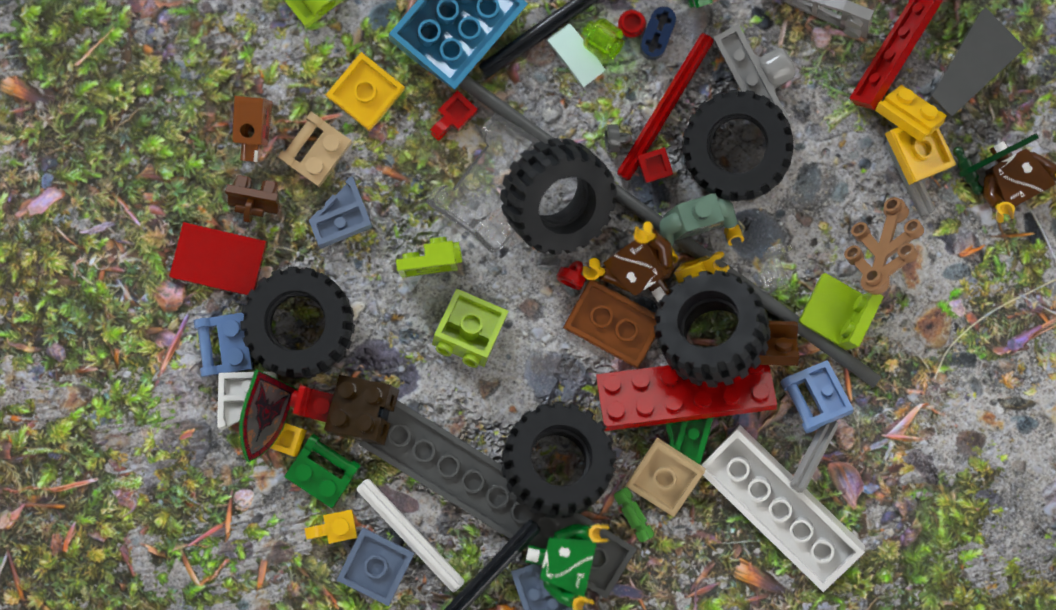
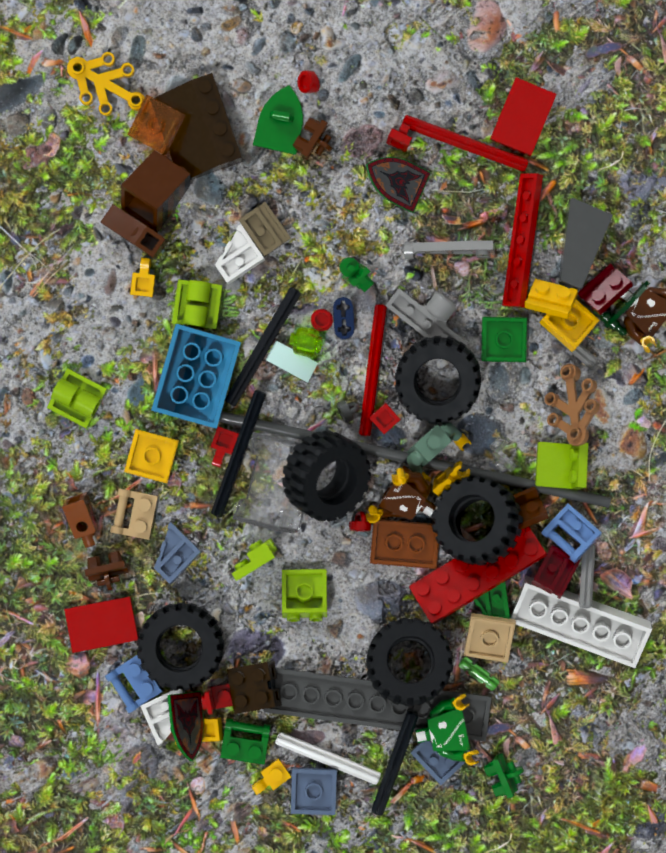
camera: 30 degrees left, 5 degrees up
(466, 131) = (238, 453): none -> black axle
(778, 433) = (555, 572): none -> dark red plate
(834, 138) = (504, 339): none -> green plate
(979, 131) = (605, 289): none -> dark red plate

